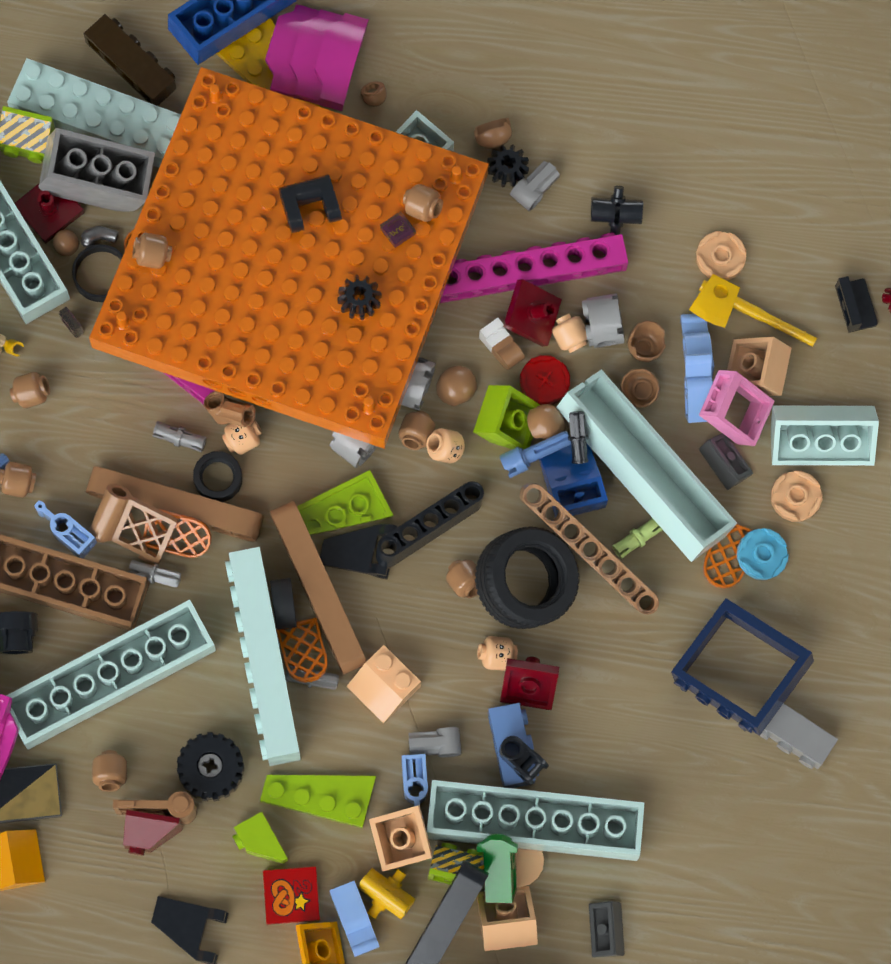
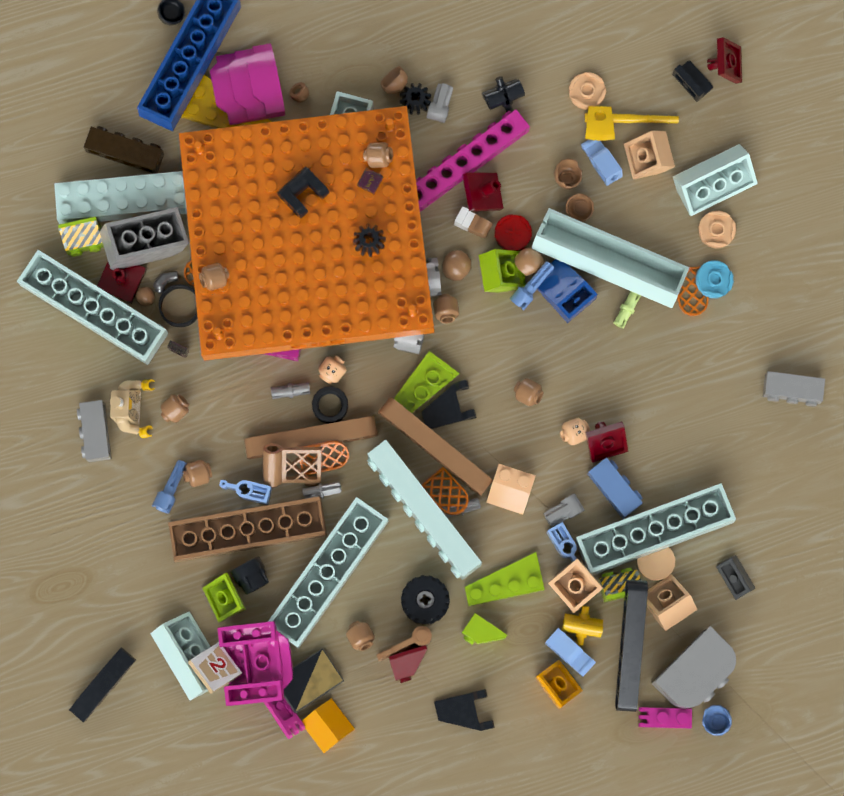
camera: 20 degrees left, 5 degrees up
(228, 410) = (316, 357): medium nougat piece -> none
(283, 603) = (418, 468): black tyre -> none
(291, 895) = (520, 657): red tile -> none
(424, 534) = (492, 360): black beam -> none
(445, 445) = (471, 309): light nougat head -> none
(500, 863) = (648, 570): piece -> none
(523, 760) = (629, 494): black piece -> none
(559, 565) = (592, 360): black tyre -> none
(570, 333) = (515, 192): light nougat head -> none
(578, 437) = (557, 262): black axle -> none
(600, 554) = (610, 332): medium nougat beam -> none
(604, 320) = (534, 173): light grey brick -> none
(696, 384) = (619, 189): light blue piece -> none
(719, 401) = (638, 192): bright pink window -> none
(725, 461) = (659, 228): dark grey slope -> none
(802, 657) = (746, 332): dark blue window -> none

